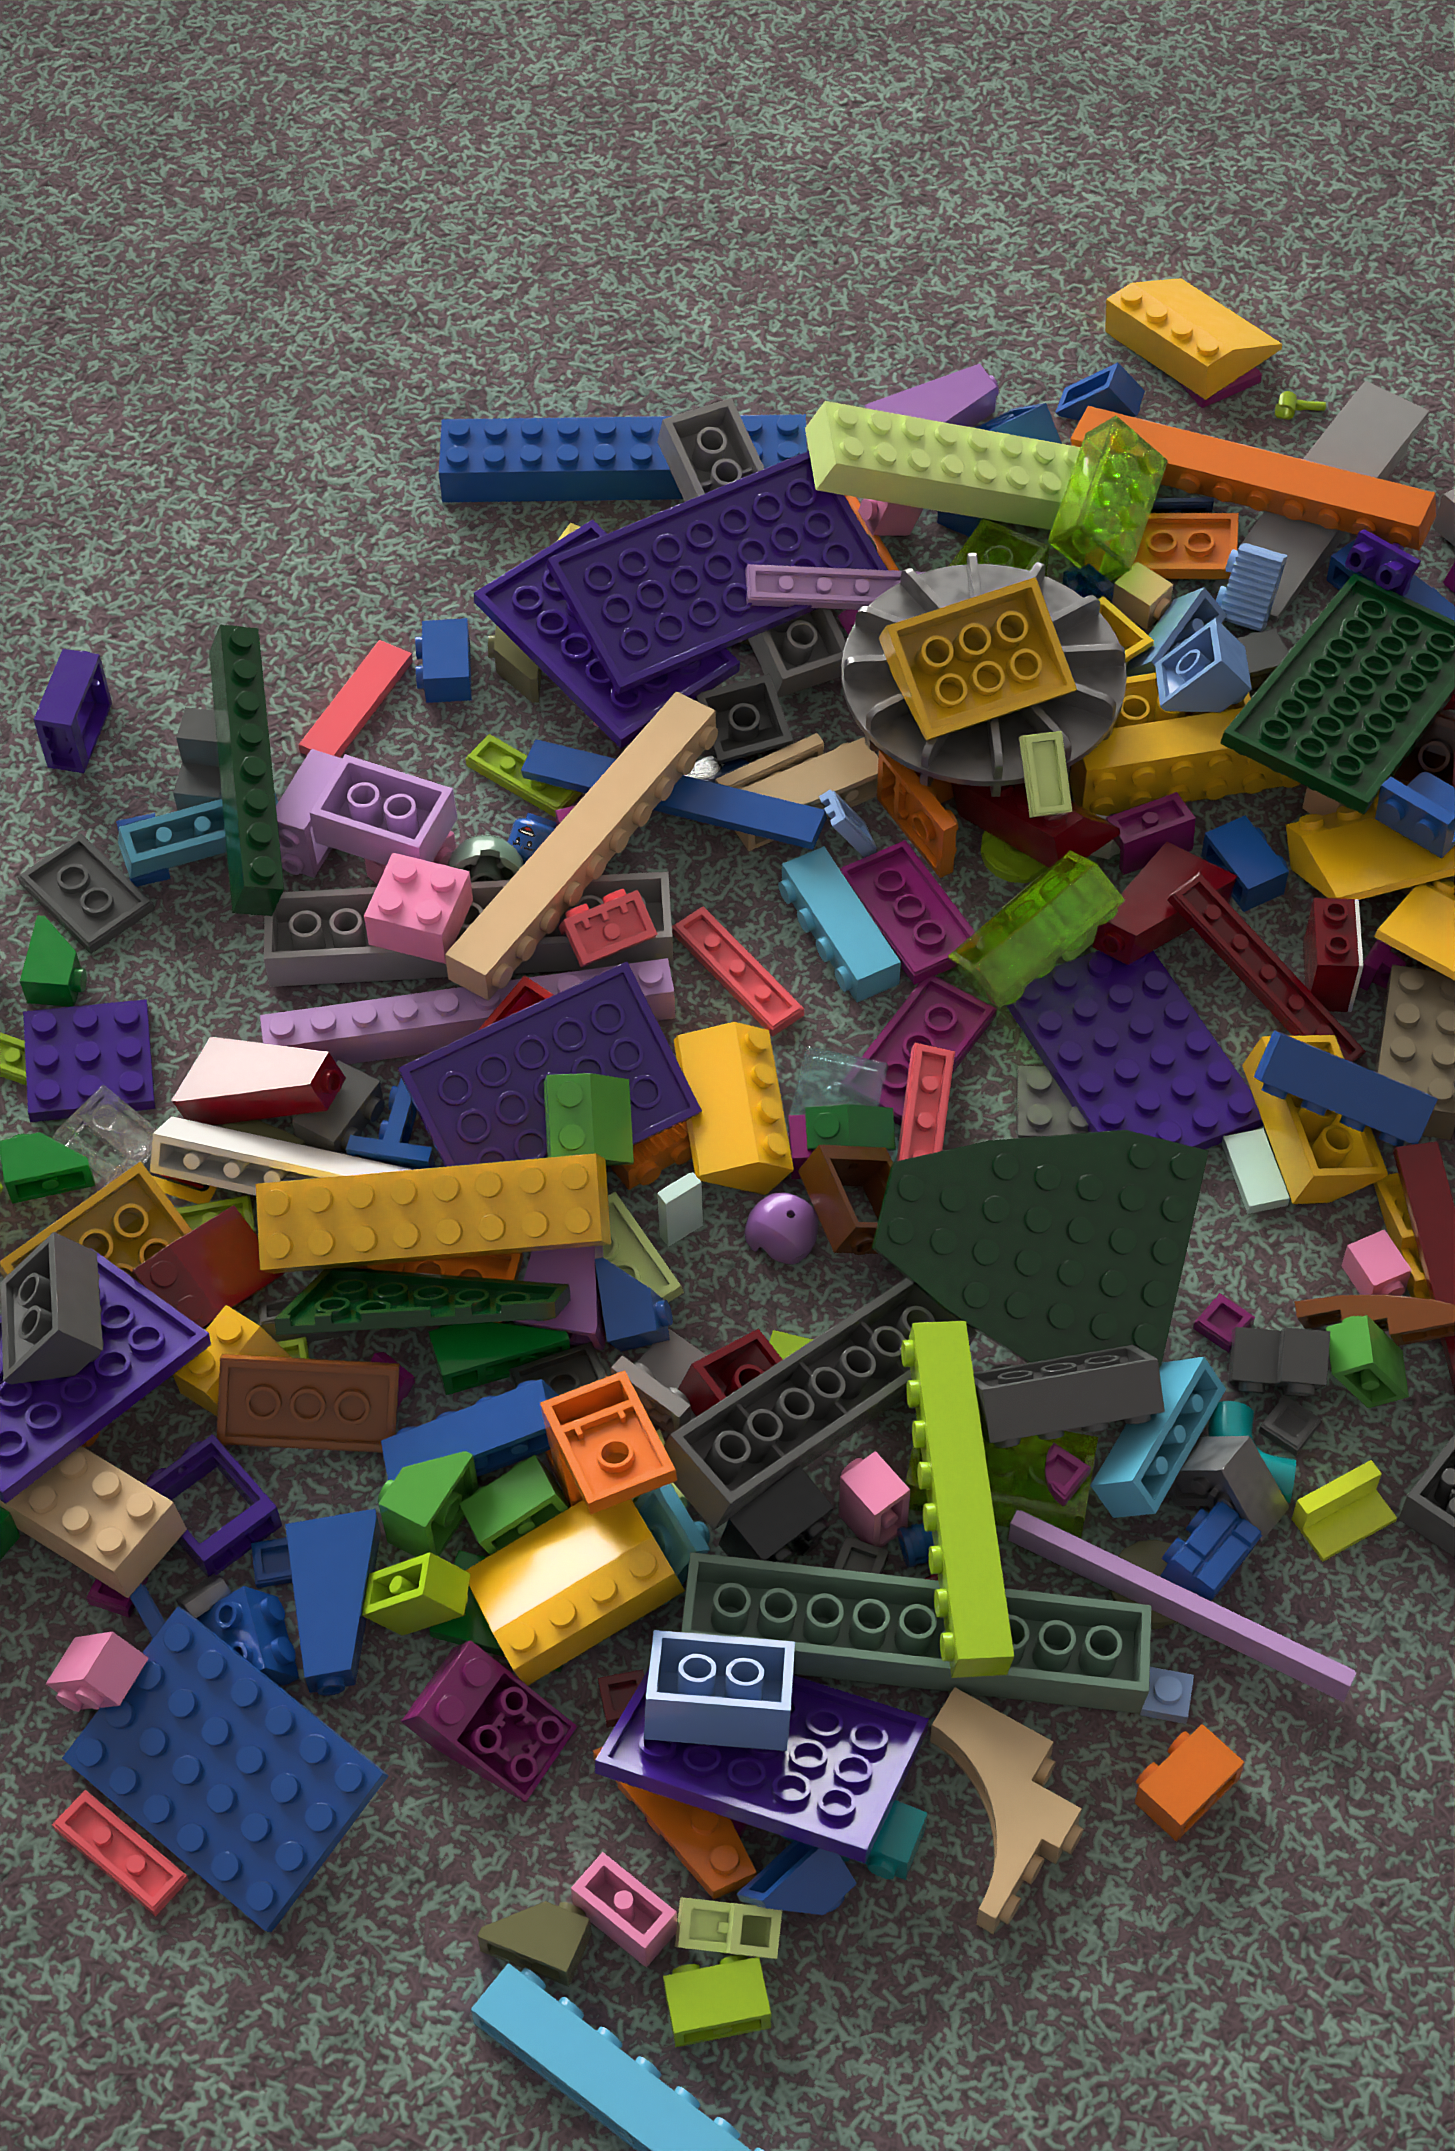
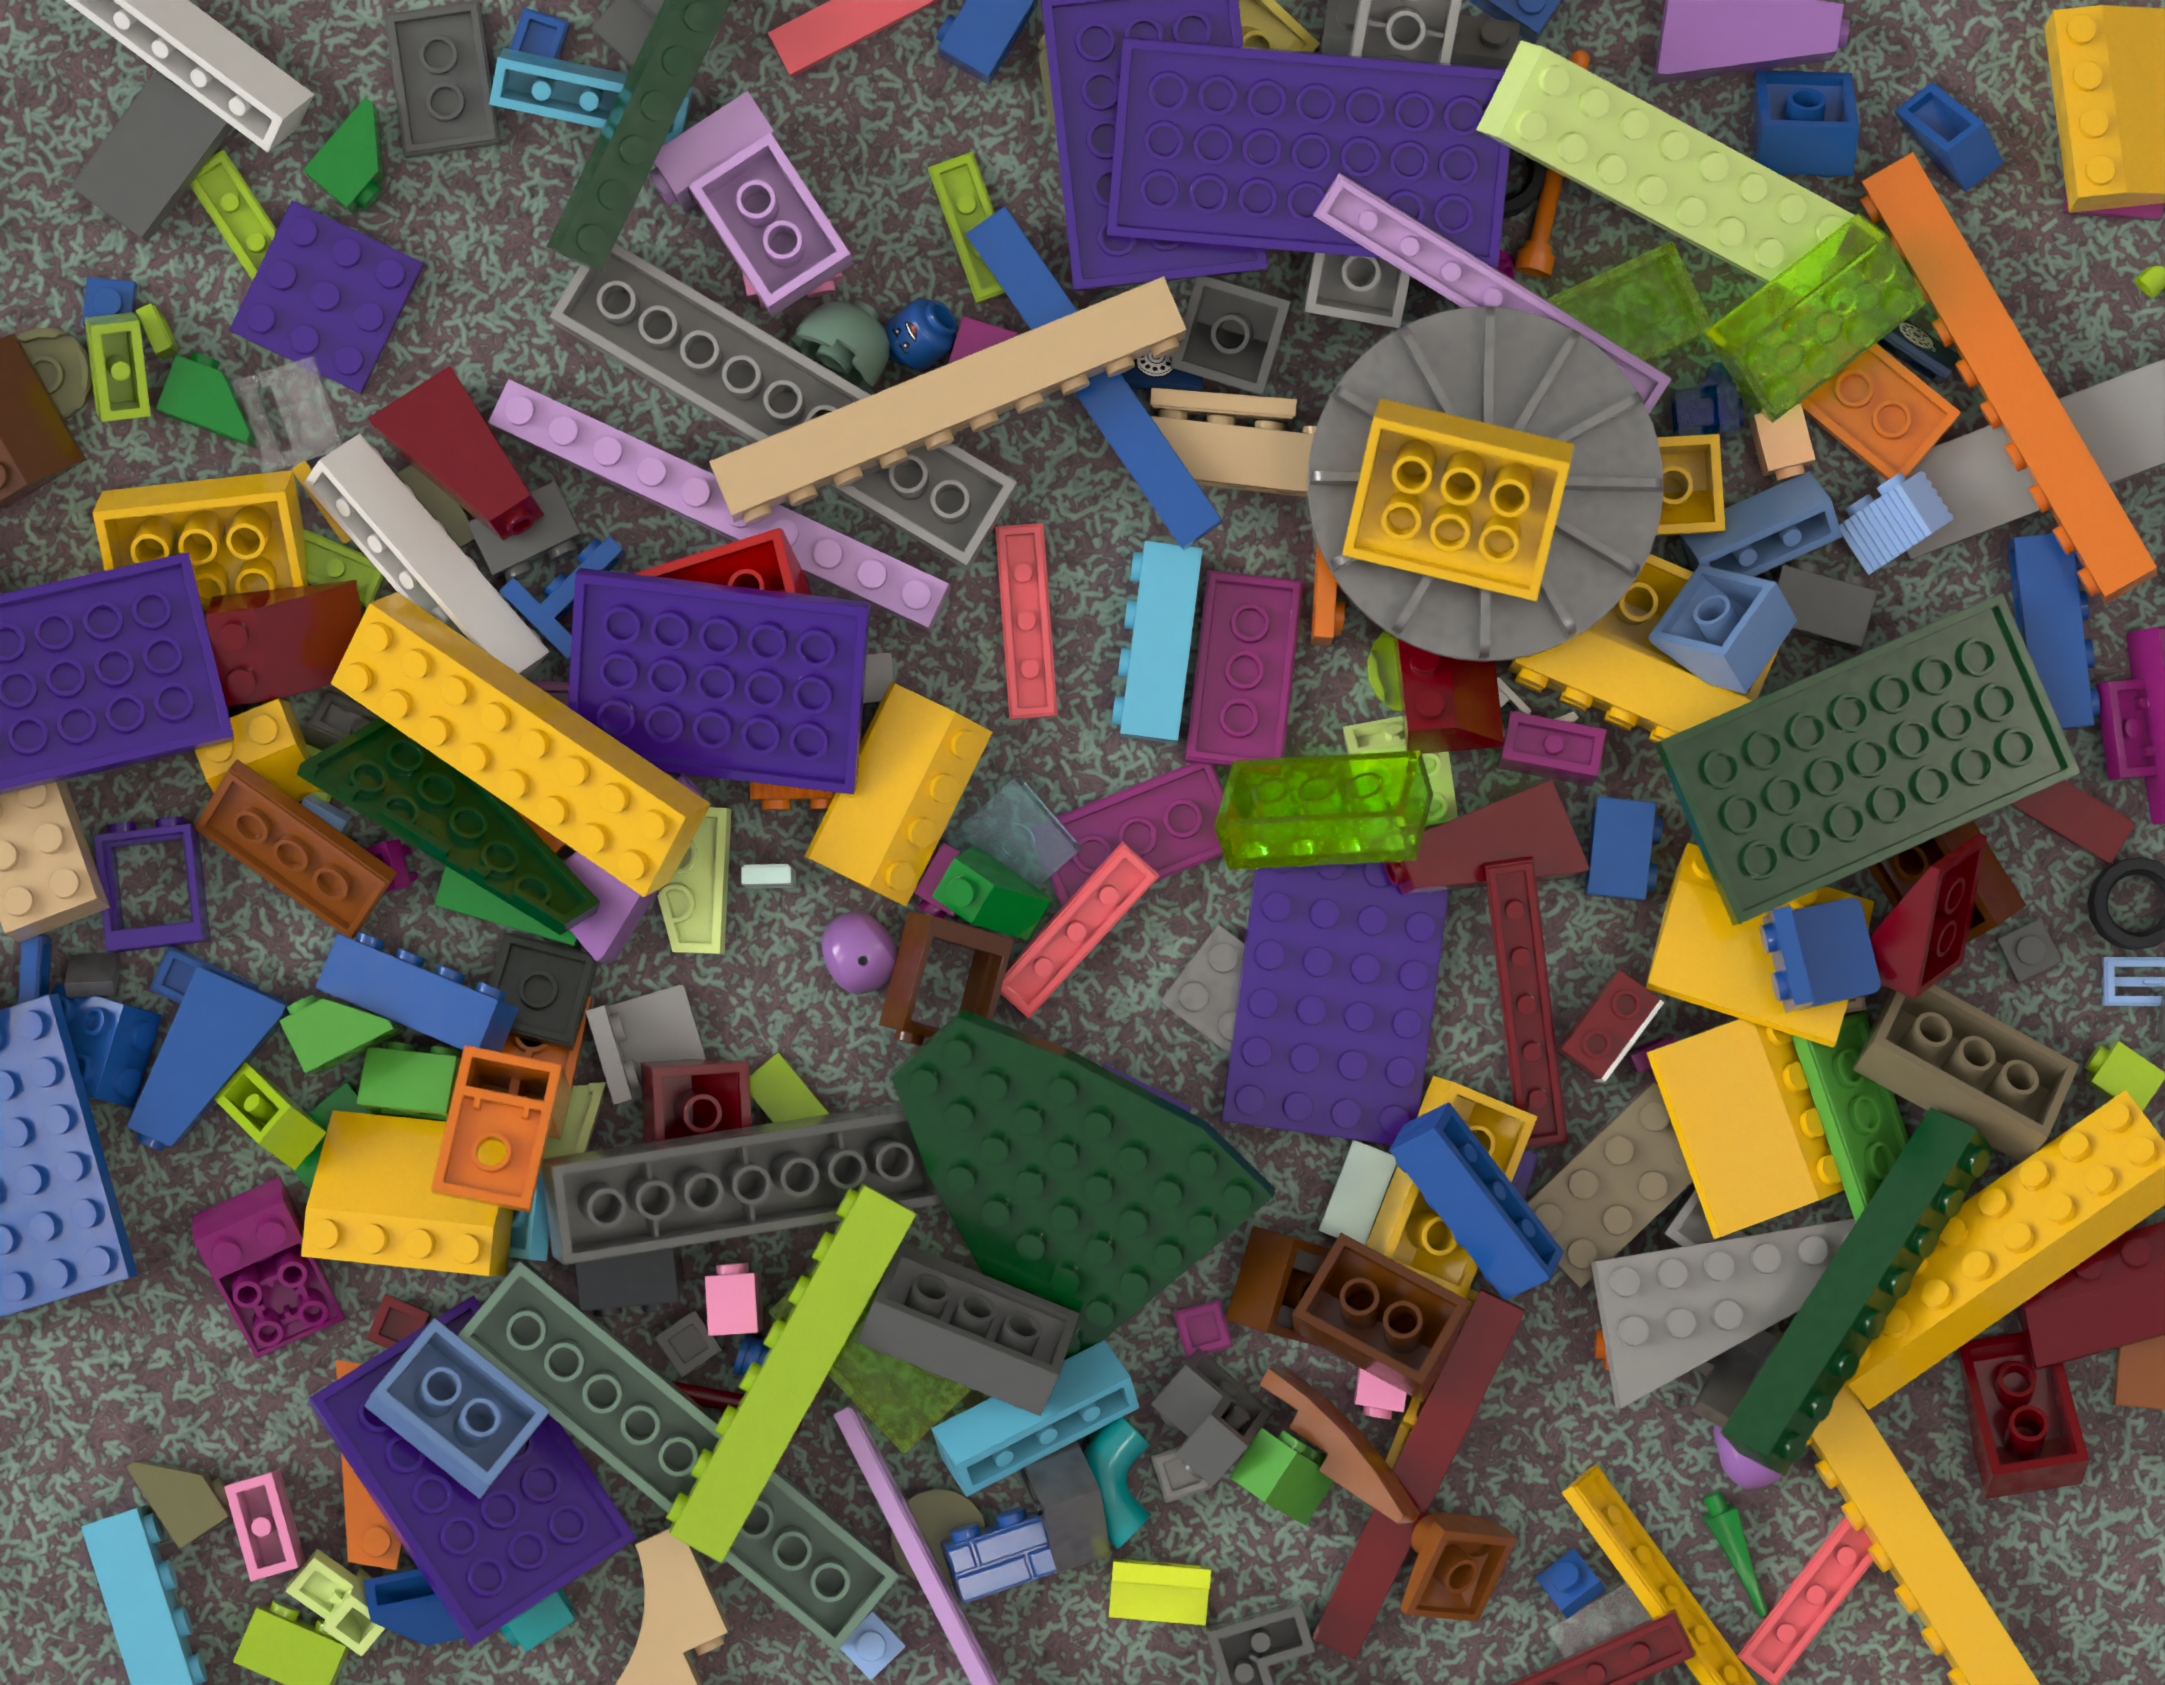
camera: 40 degrees right, 30 degrees up
(51, 1312) = (96, 626): dark grey slope -> none
(418, 907) = (728, 373): bright pink brick -> none
(589, 1117) = (726, 746): bright green slope -> none
(608, 927) = (901, 519): coral bracket -> none
(630, 1309) = (654, 949): blue slope -> none
(848, 823) = (1233, 533): light blue tile -> none
(1045, 774) = (1439, 669): yellowish green tile -> none
(1064, 1473) = (913, 1403): magenta tile -> none
(1260, 1250) = (1273, 1281): none -> reddish brown slope
(1345, 1205) = (1381, 1316): none -> reddish brown slope
(1382, 562) = (2046, 598): dark purple hips -> none

